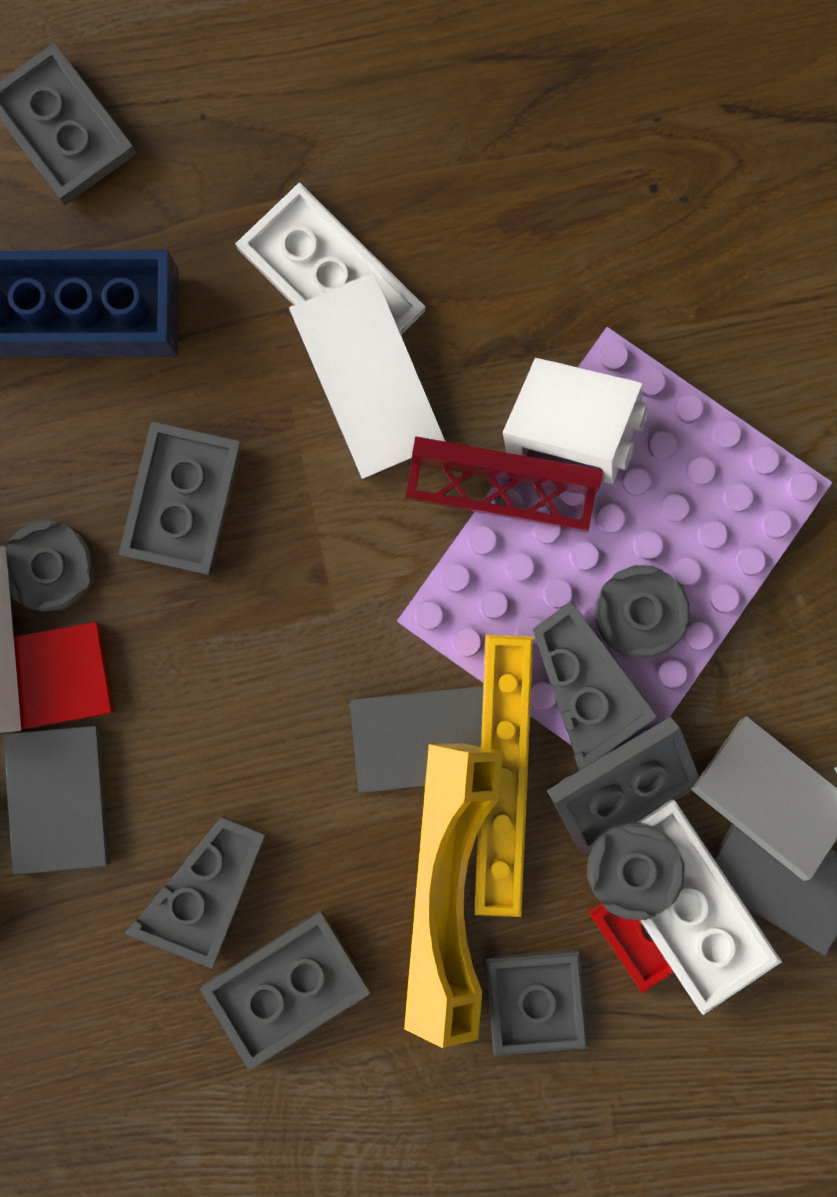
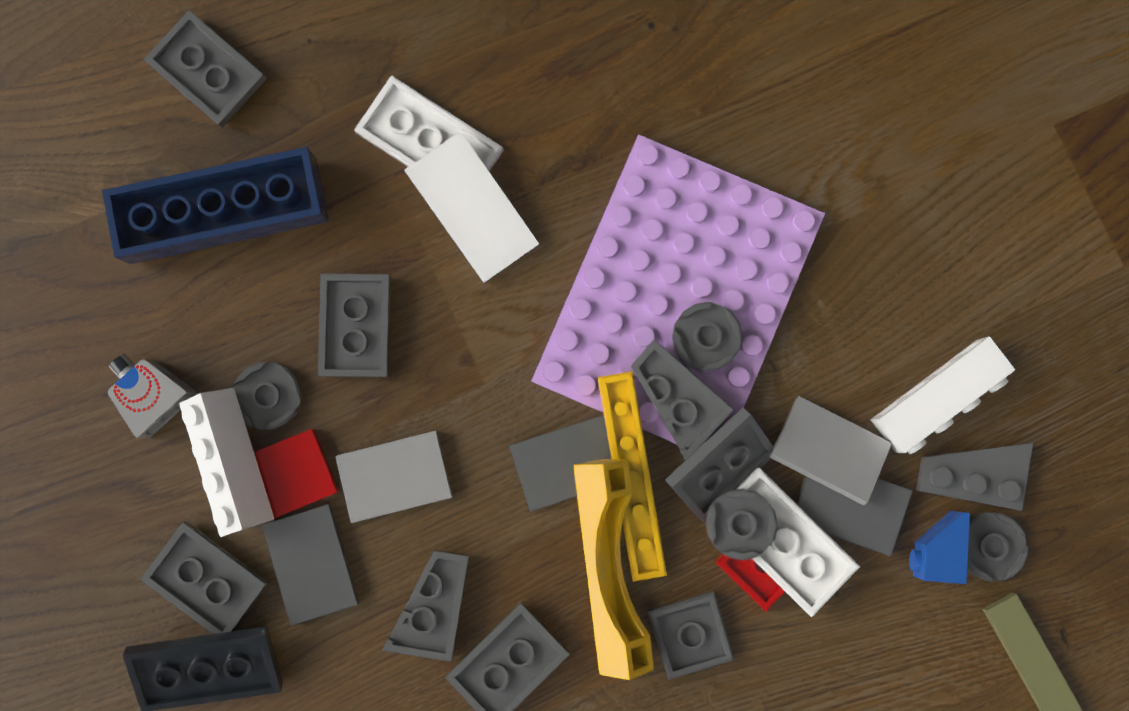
camera: 15 degrees left, 0 degrees up
(190, 708) = (393, 476): none -> light grey tile
(506, 467) = (586, 252): dark red fence -> none
(576, 416) = (629, 205): white panel -> none

